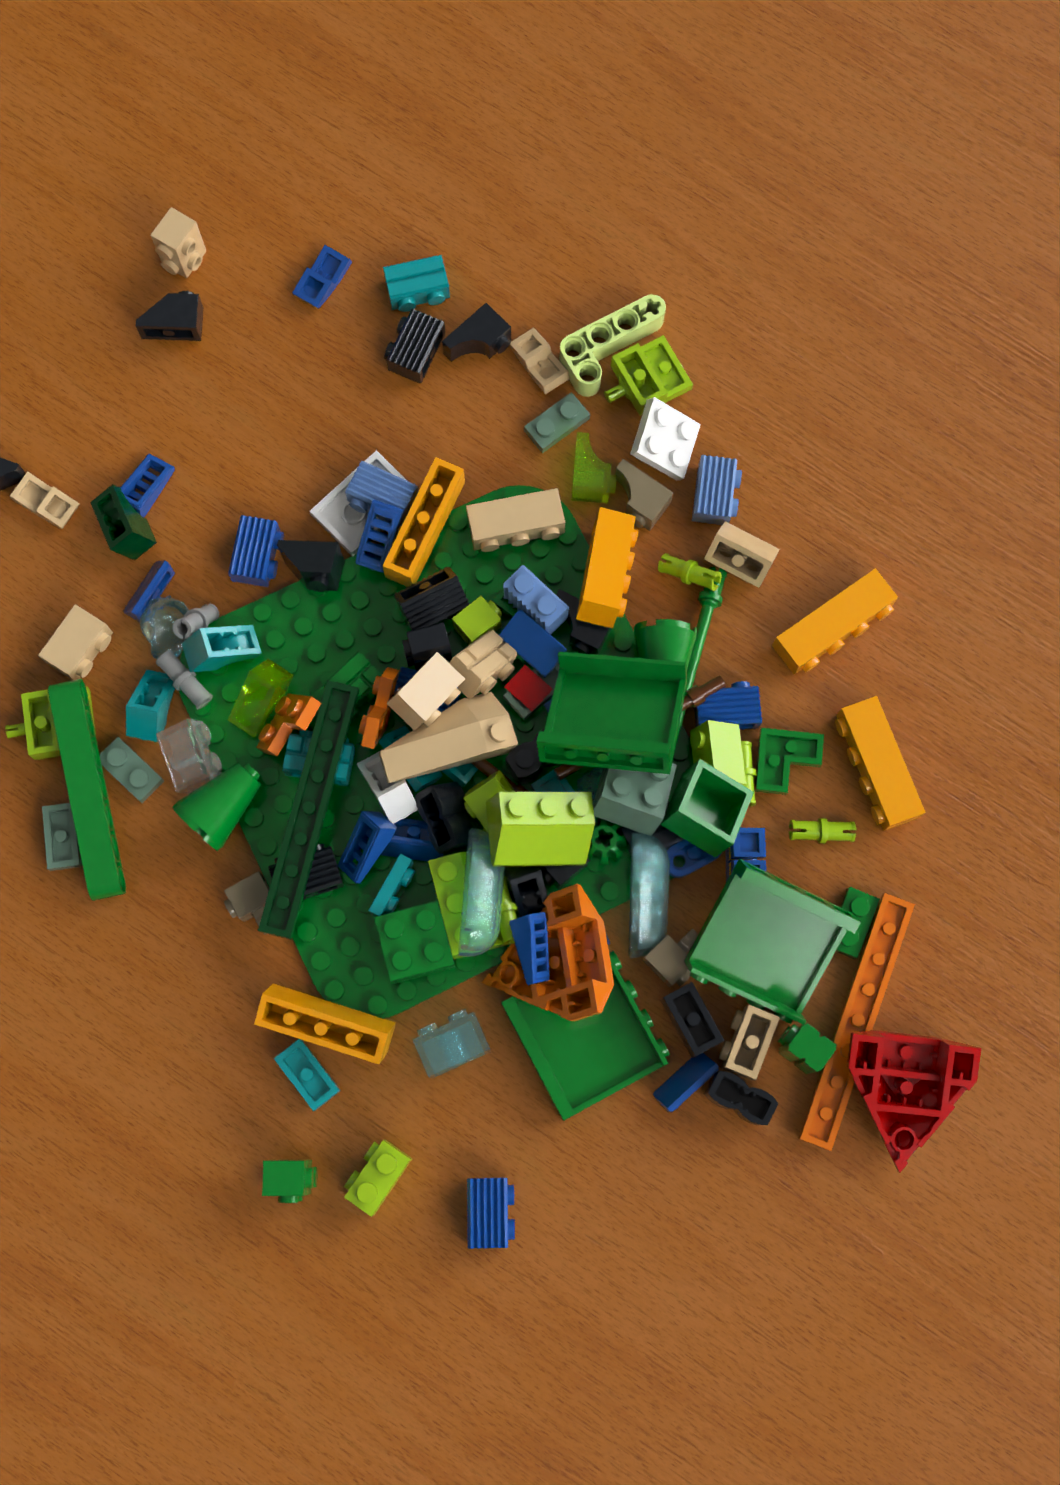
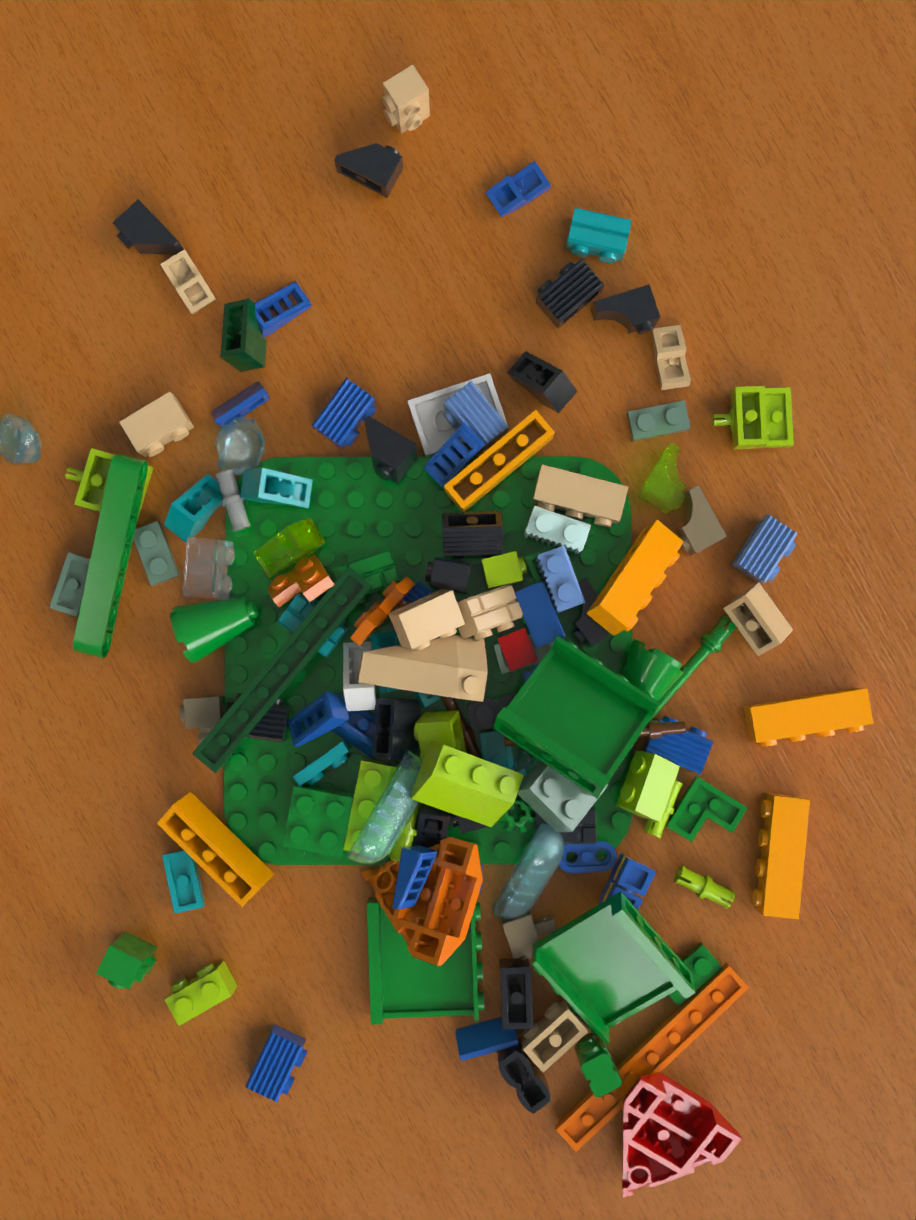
camera: 25 degrees right, 10 degrees up
(195, 619) = (265, 454): light grey pin -> none
(430, 434) = (543, 381): none -> black arch
(451, 1044) = (309, 918): clear light blue brick -> none
(503, 559) = (557, 530): none -> light aqua brick
(638, 315) = (746, 370): yellowish green beam -> none
(665, 439) = (744, 483): white plate -> none
(689, 572) = (705, 612): lime pin -> none
(707, 808) = (616, 834): green piece -> none

